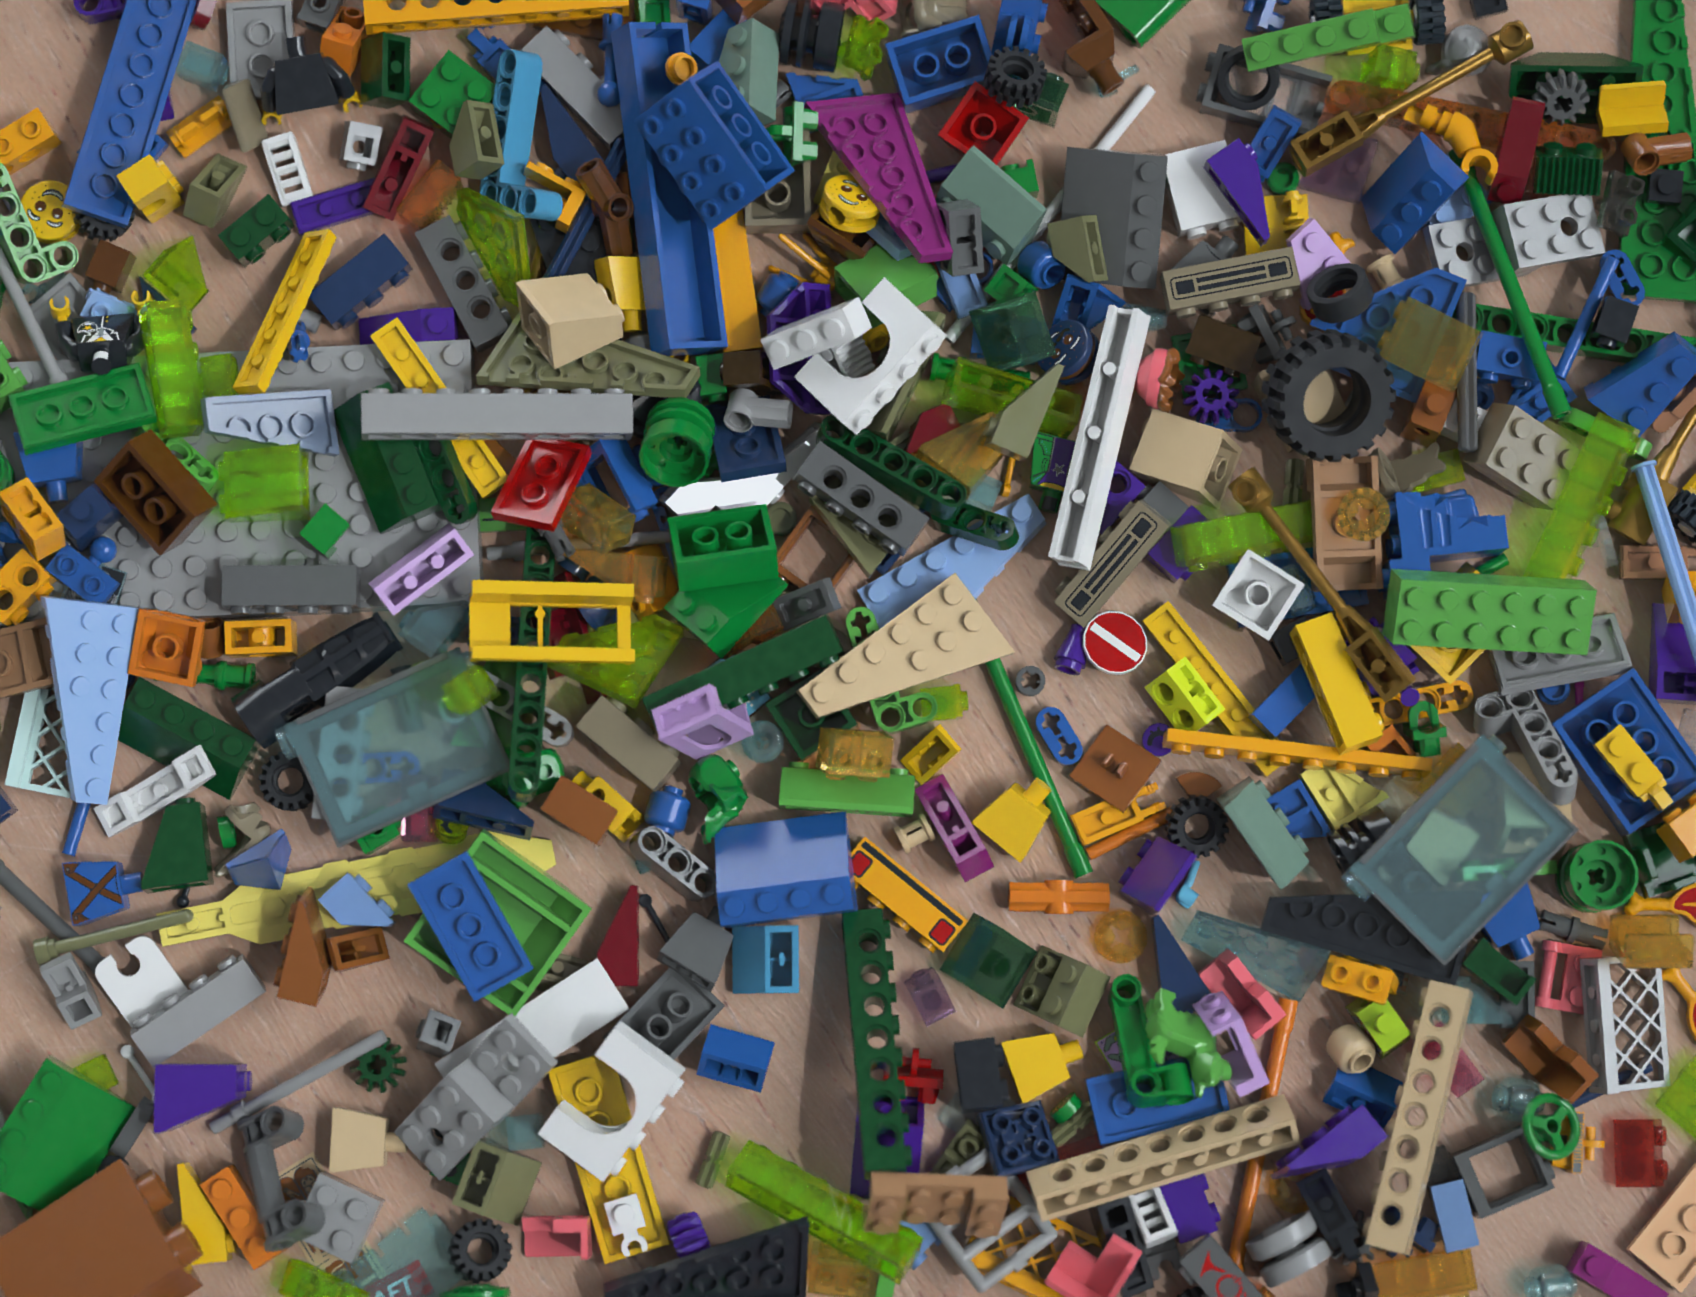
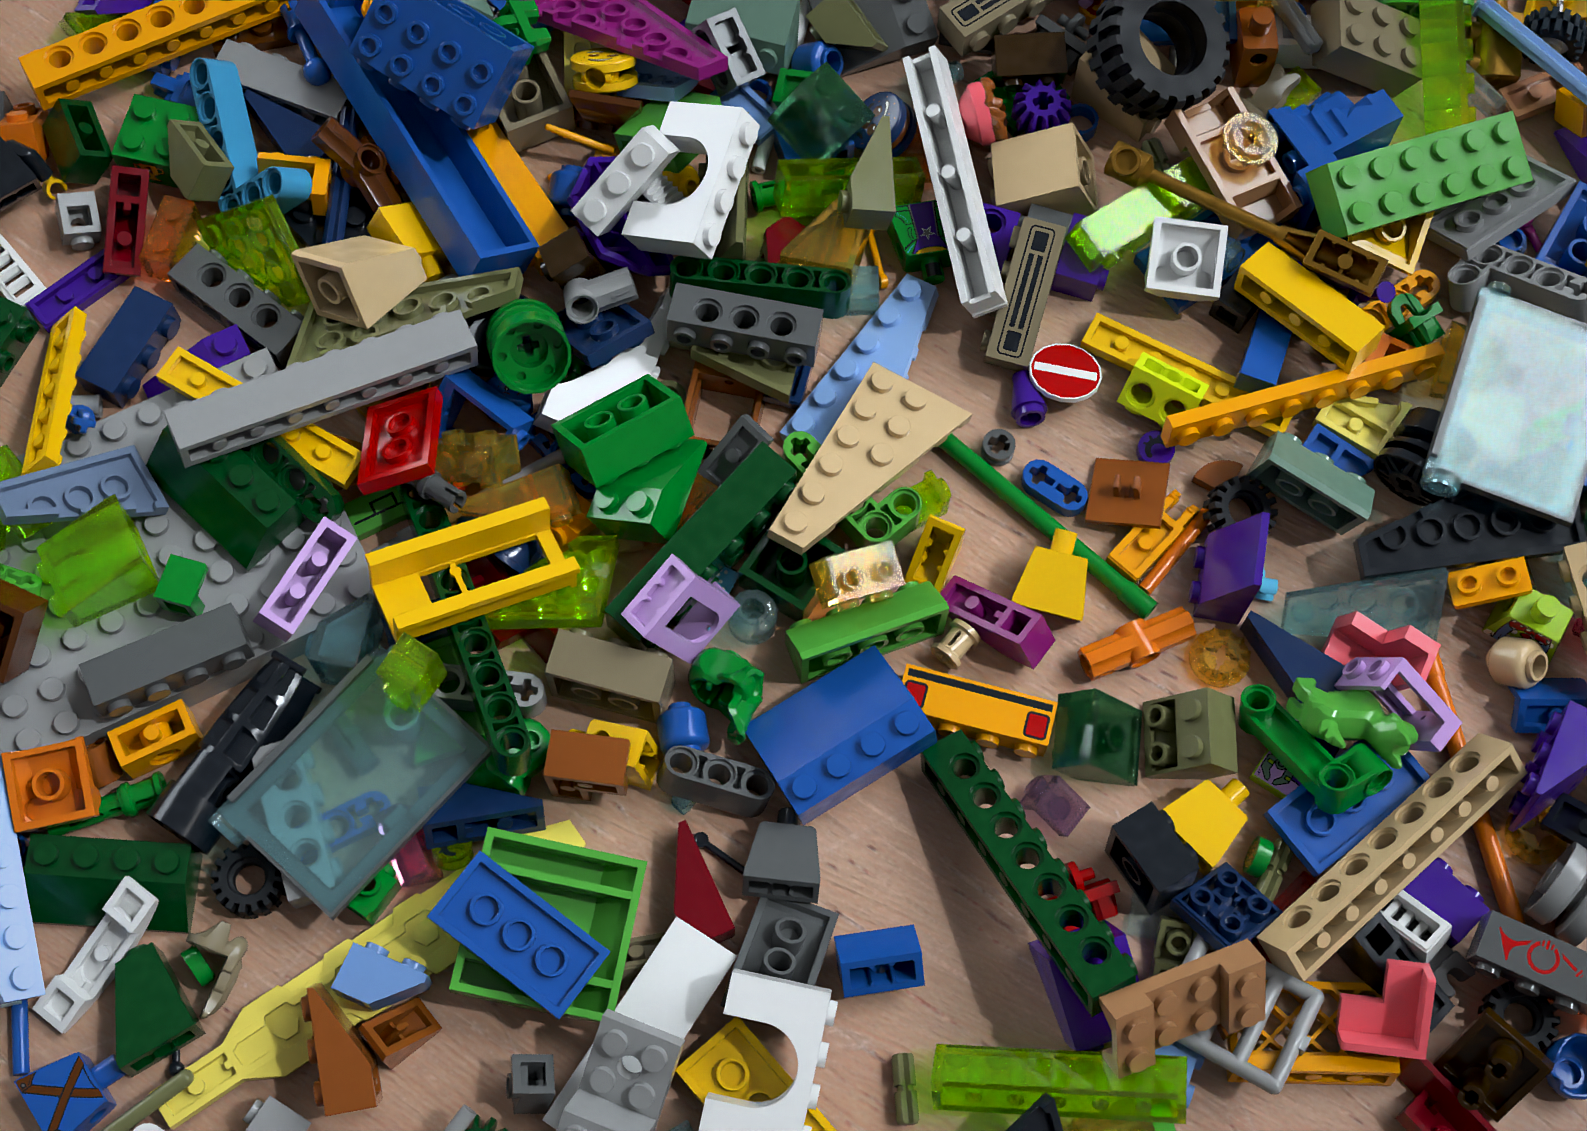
camera: 25 degrees left, 15 degrees down
(262, 864) = (251, 982): blue slope -> none
(710, 380) = (539, 287): green brick -> none
(765, 959) = (863, 839): dark azure slope -> none
(984, 534) = (892, 310): dark green beam -> none
(1085, 302) = (874, 73): blue slope -> none

